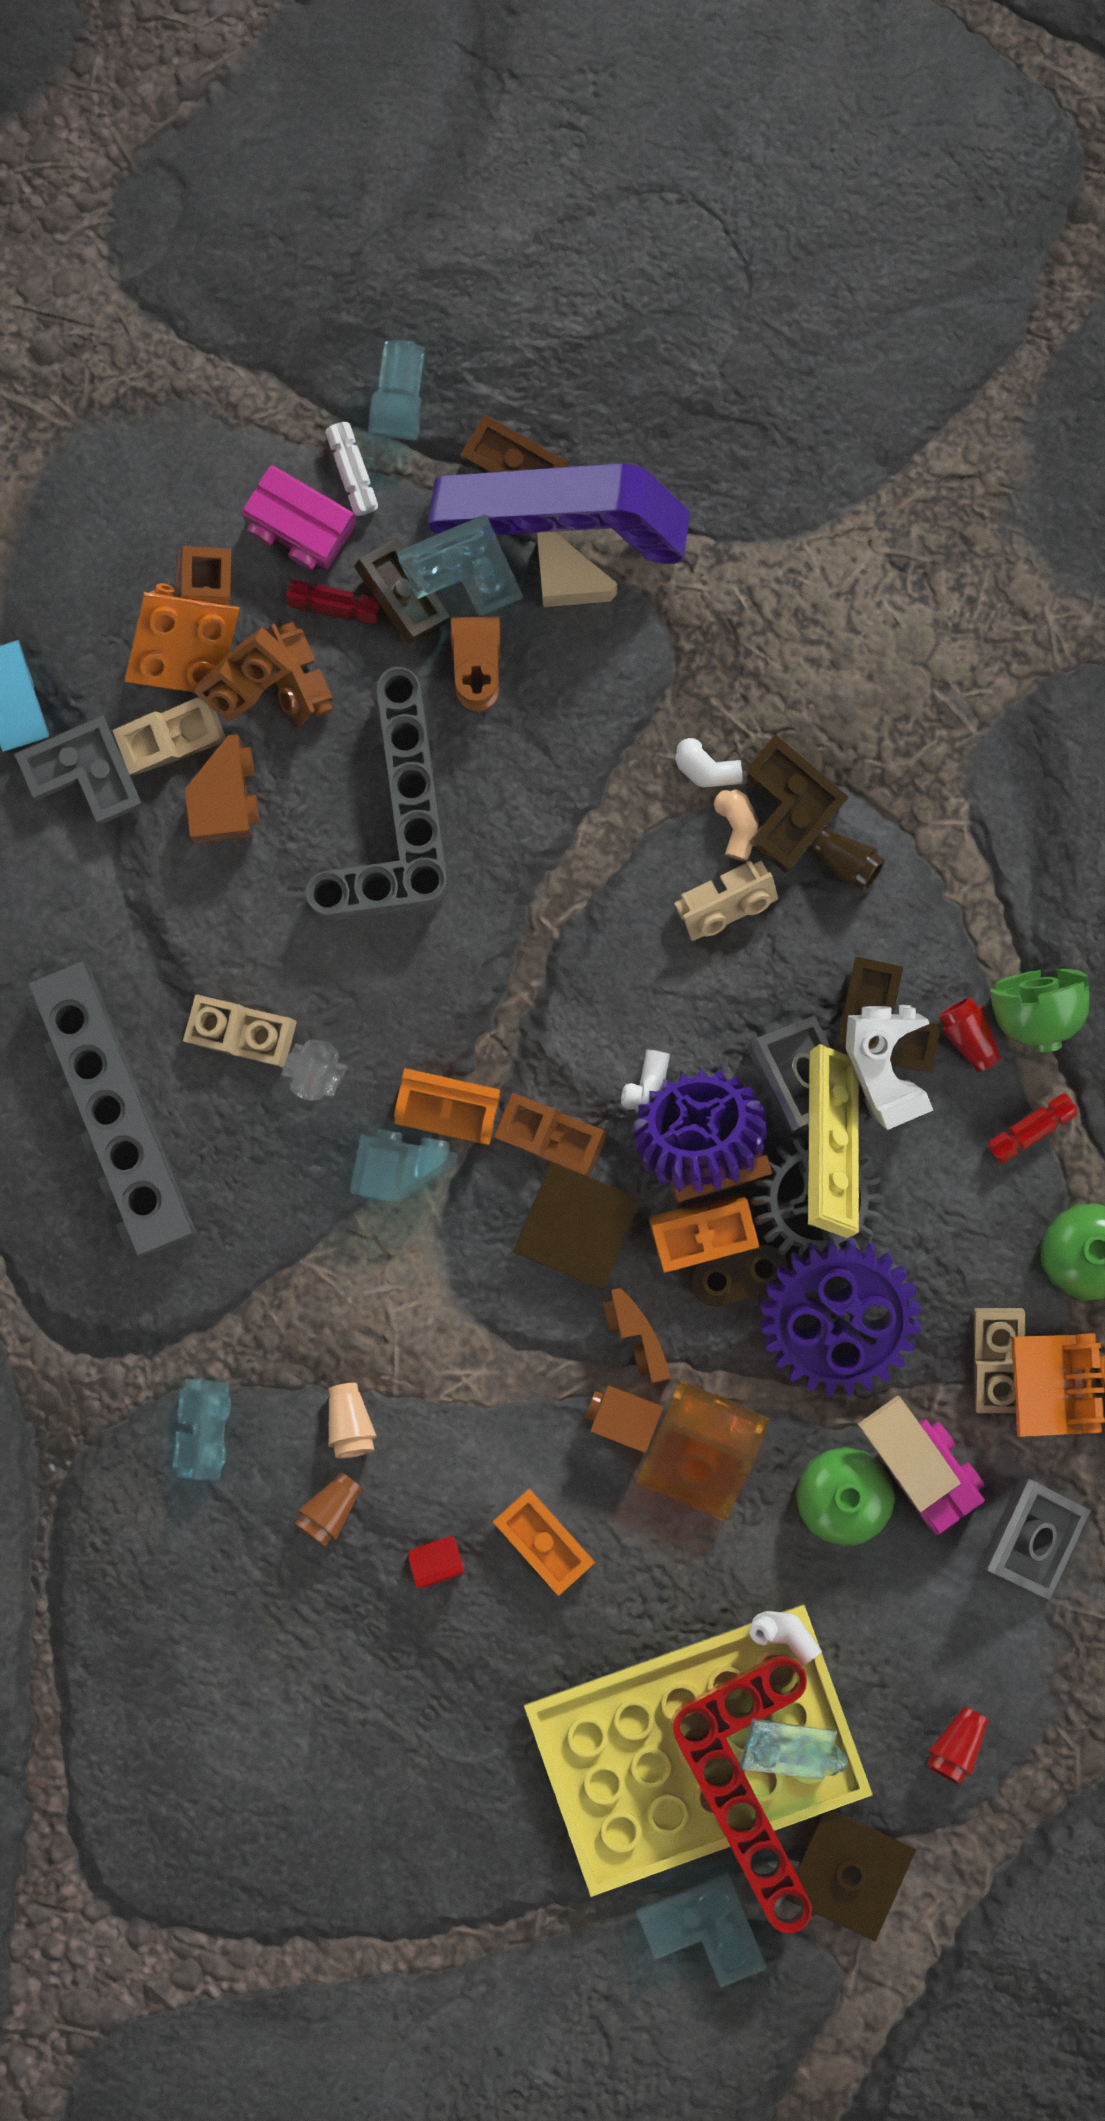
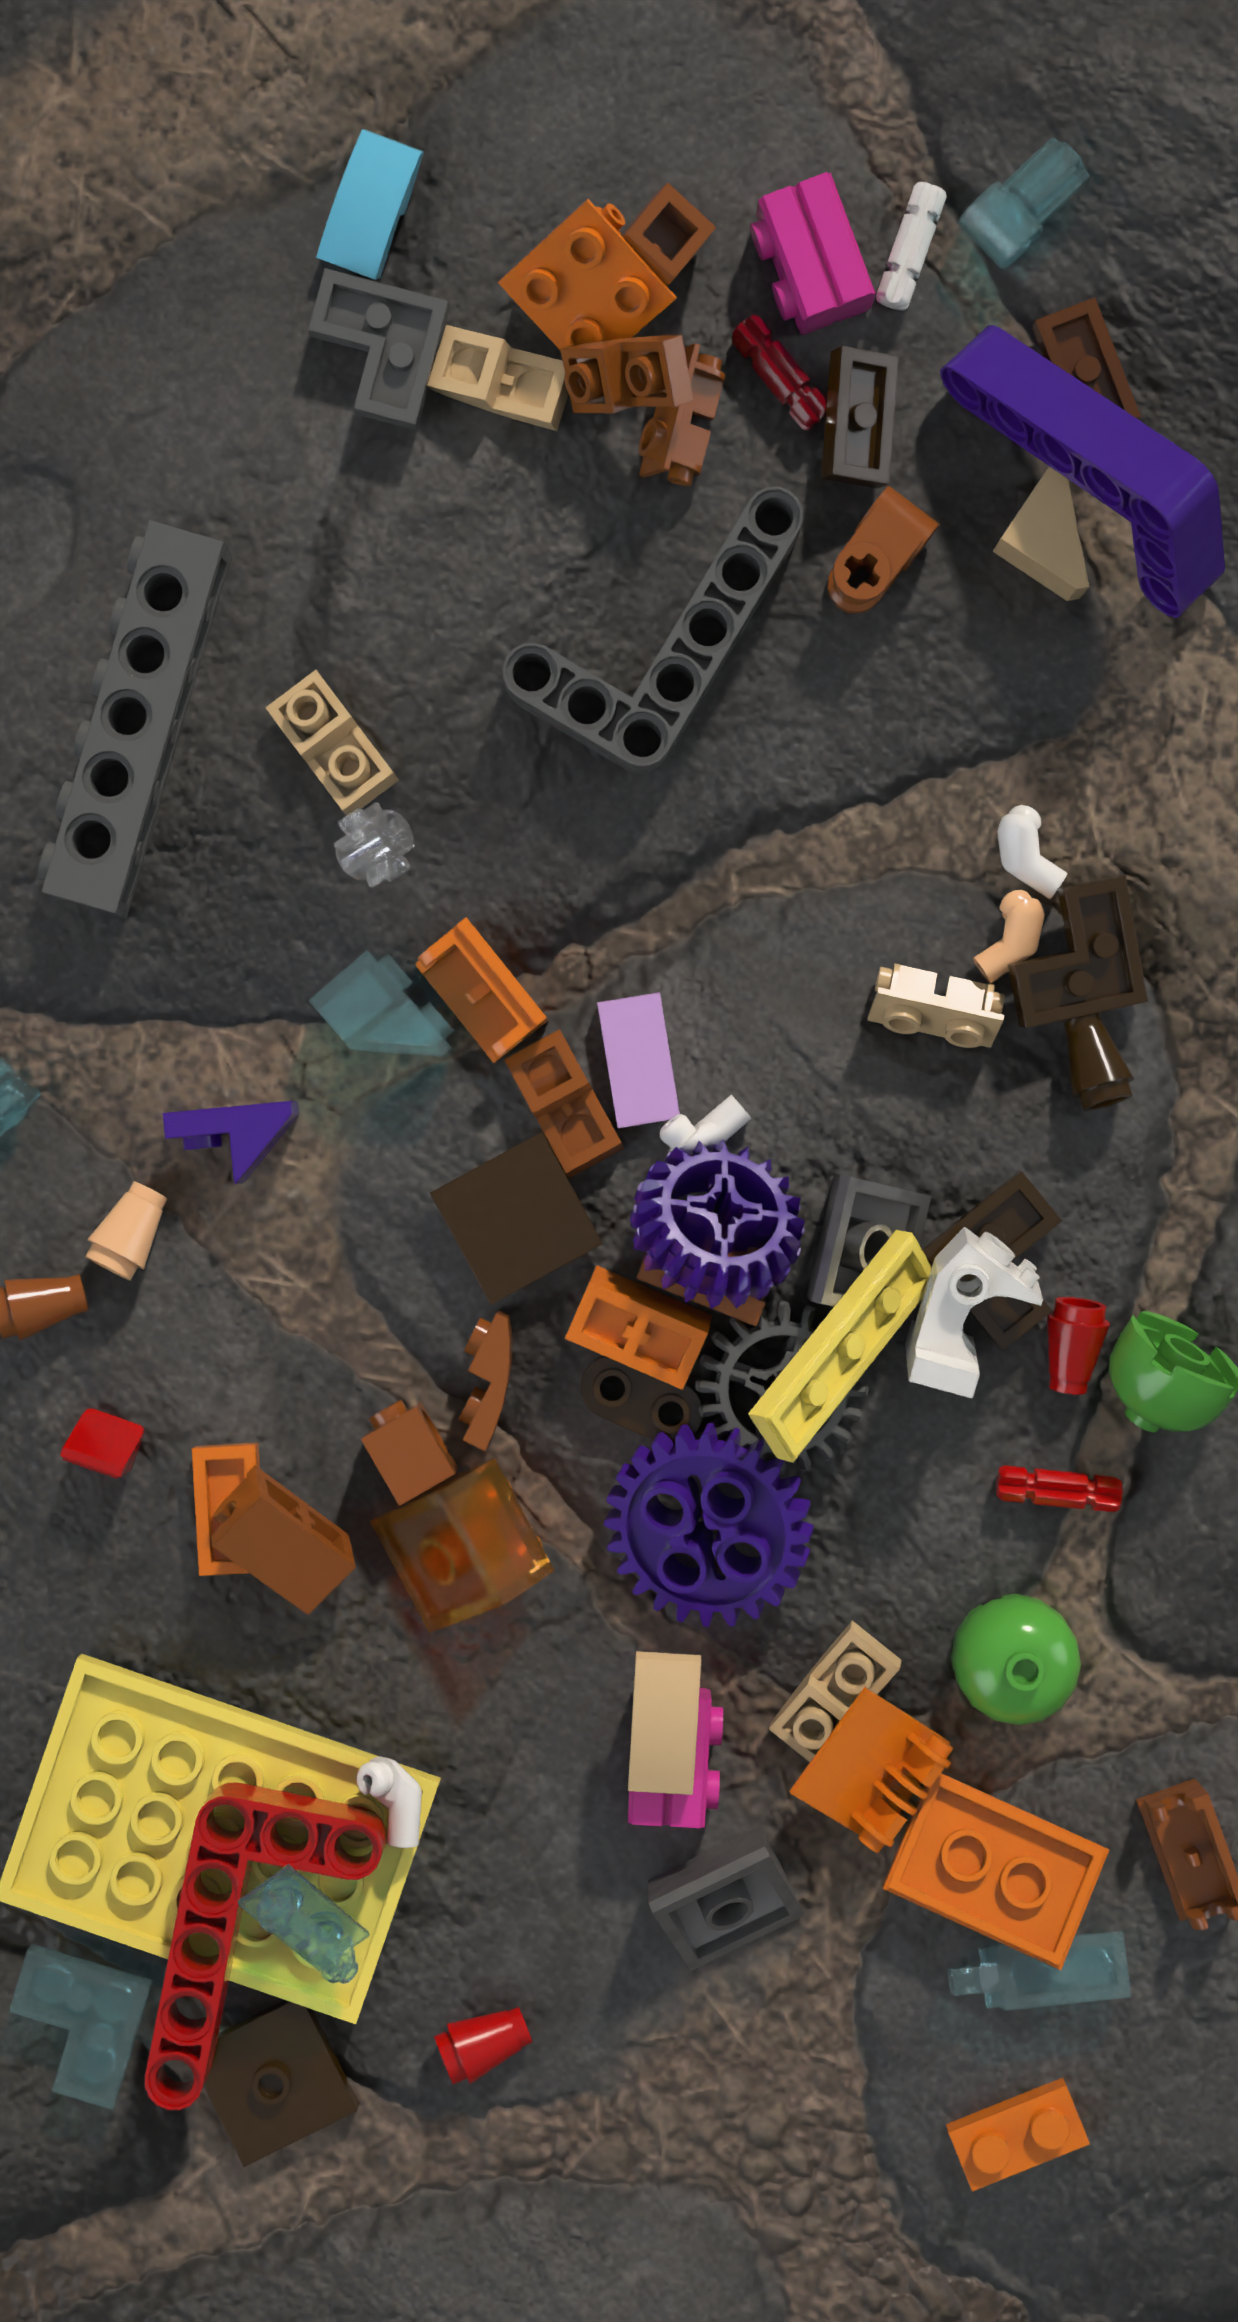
camera: 30 degrees right, 5 degrees up
(219, 795) = (501, 482): dark orange slope -> none
(375, 1297) = (251, 1130): none -> dark purple slope
(466, 555) = (952, 425): clear light blue plate -> none
(574, 1073) = (638, 1060): none -> lavender tile
(592, 1532) = (282, 1541): none -> dark orange hinge
(845, 1496) = (569, 1705): bright green cylinder -> none

